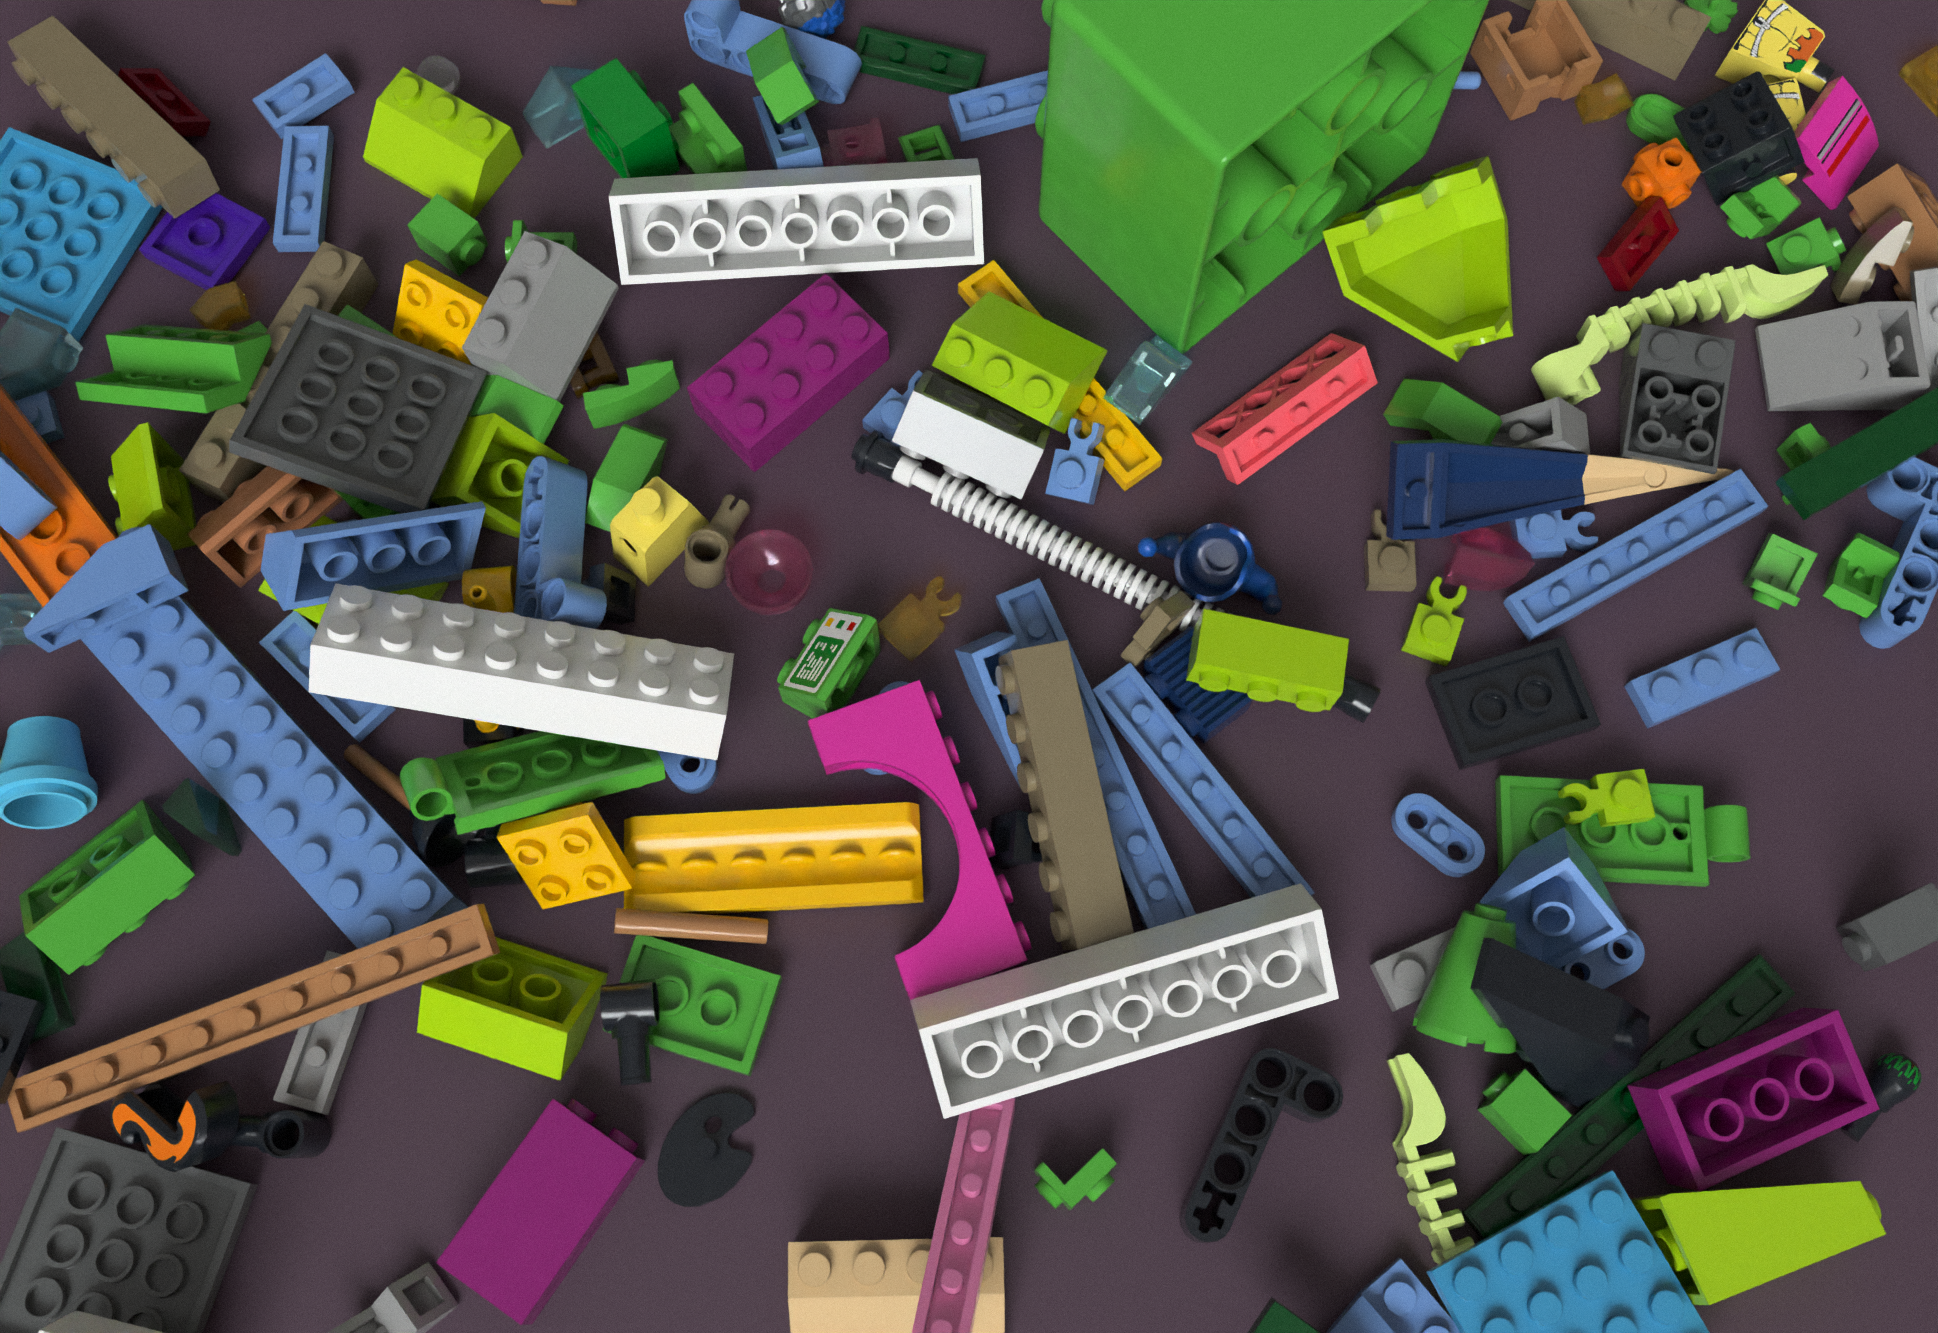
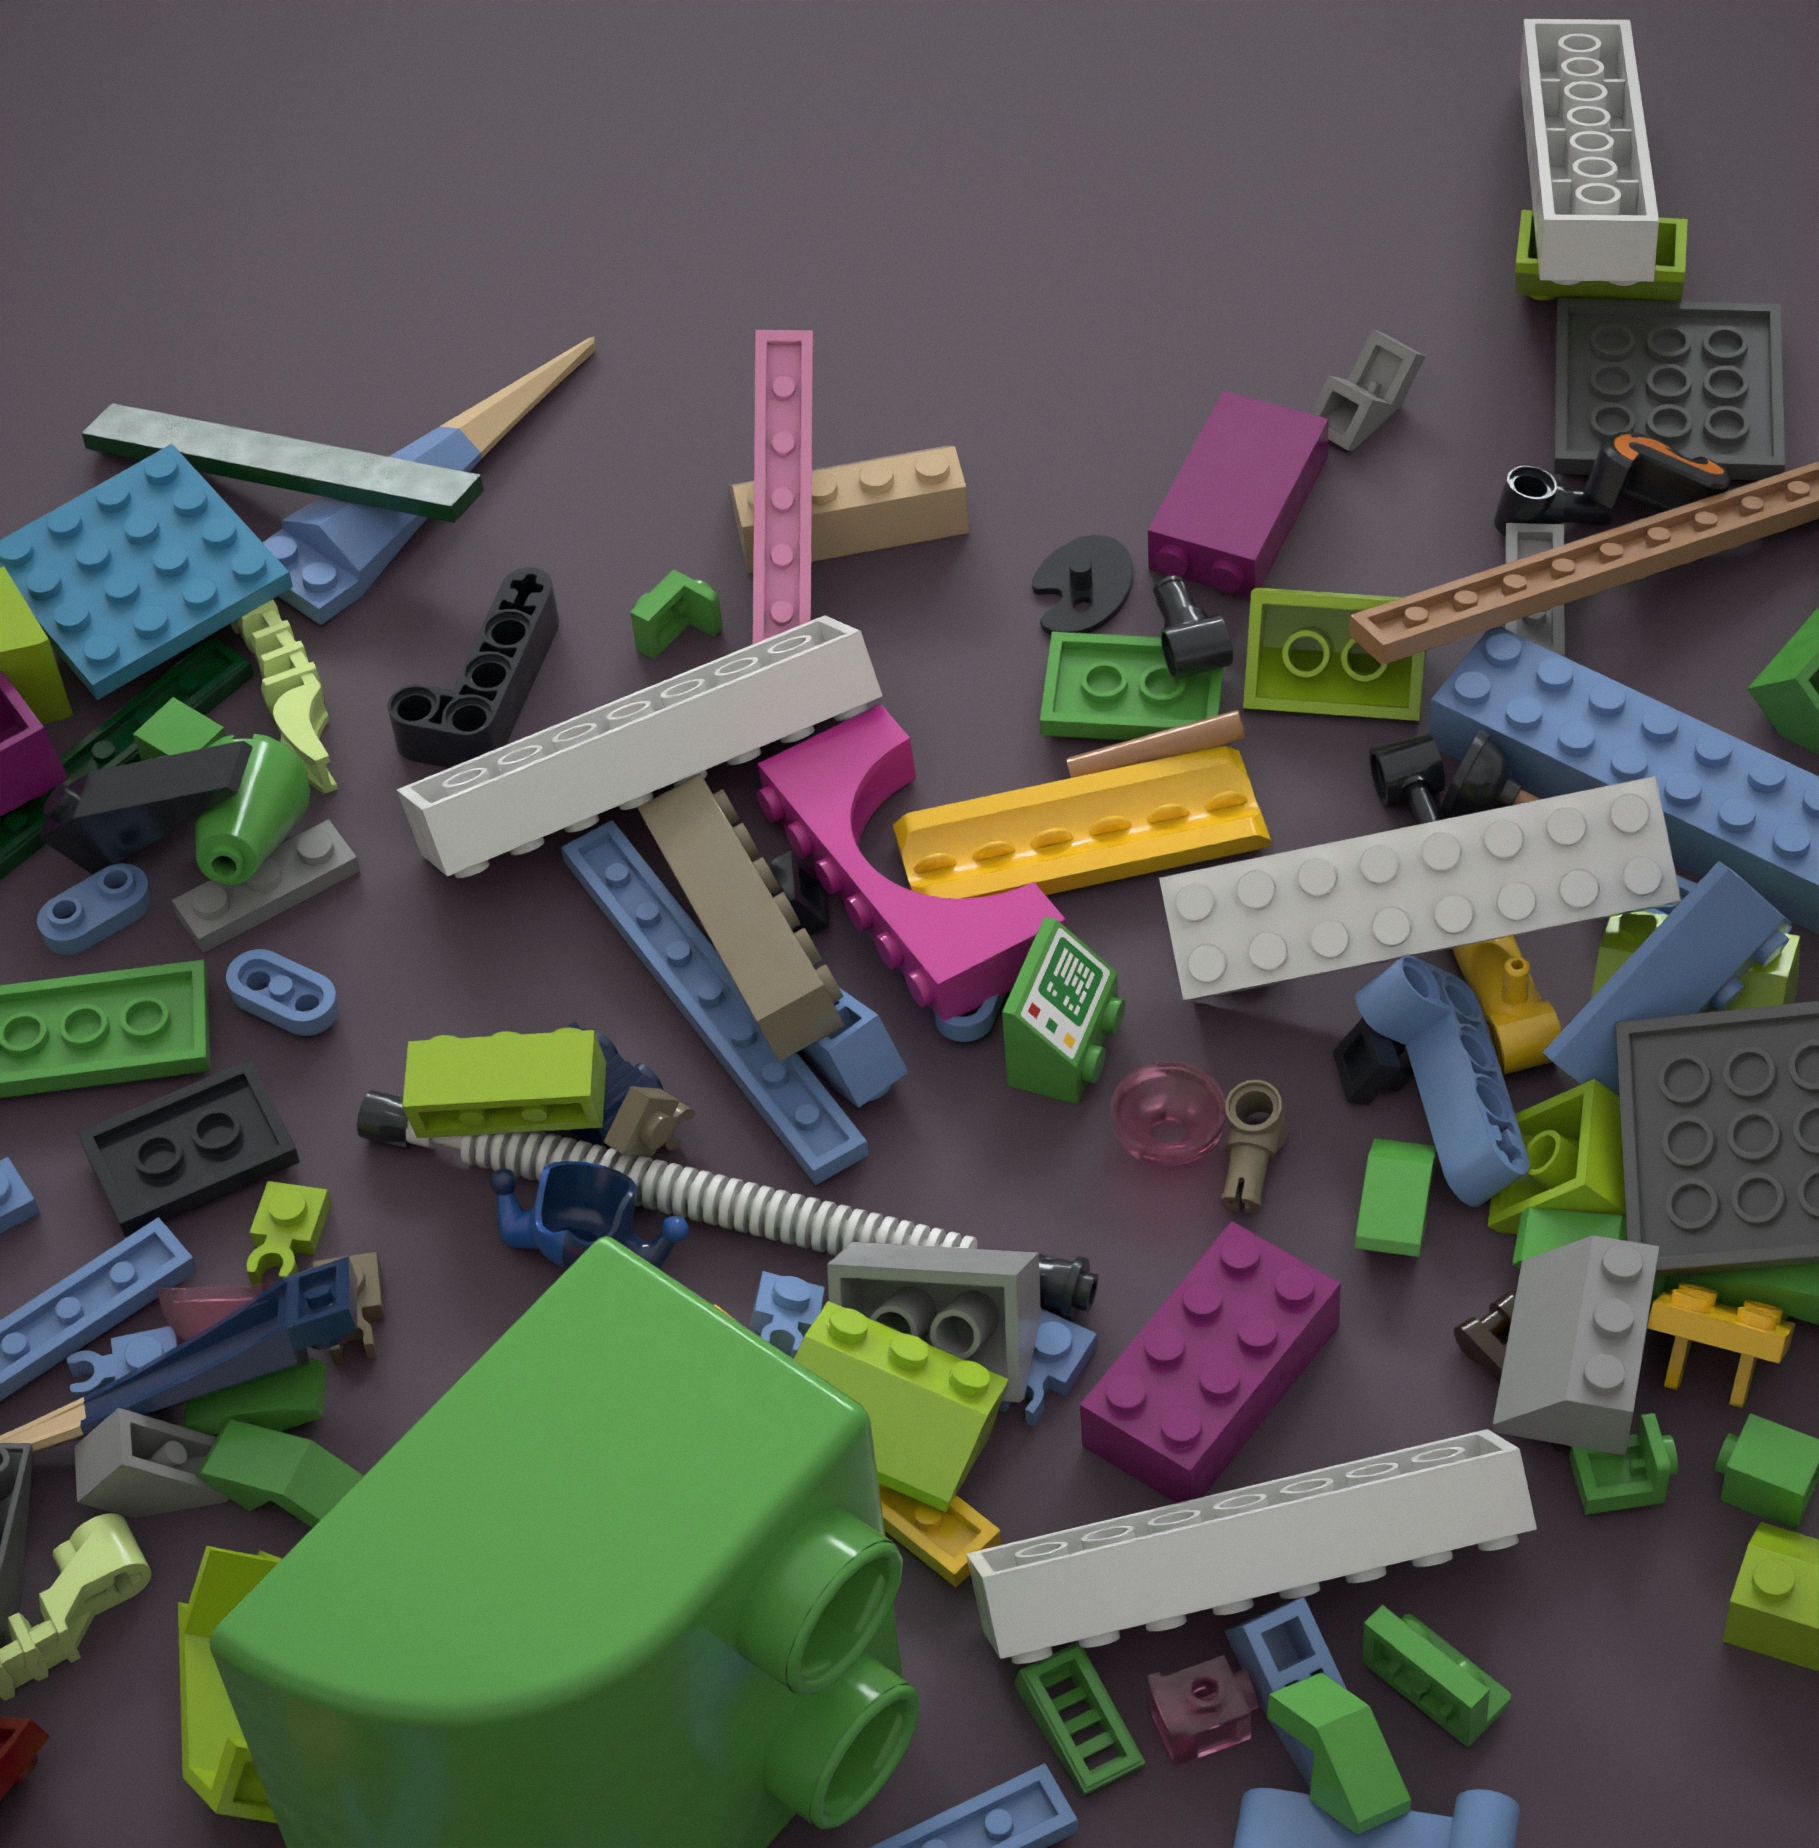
camera: 175 degrees right, 20 degrees down
(203, 815) = (1756, 709): slope -> none
(523, 778) = (1398, 787): bright green hinge -> none
(553, 107) = (1671, 1720): clear light blue slope -> none
(566, 855) = (1316, 769): yellow plate -> none
(626, 123) = (1557, 1645): green brick -> none
(647, 388) = (1408, 1314): bright green slope -> none
(655, 527) = (1339, 1116): light yellow torso -> none
(916, 623) = (964, 1113): clear yellow plate -> none
(1195, 784) = (577, 984): medium blue plate -> none
(1556, 901) = (146, 922): medium blue slope -> none
(1614, 796) = (65, 1045): lime plate -> none

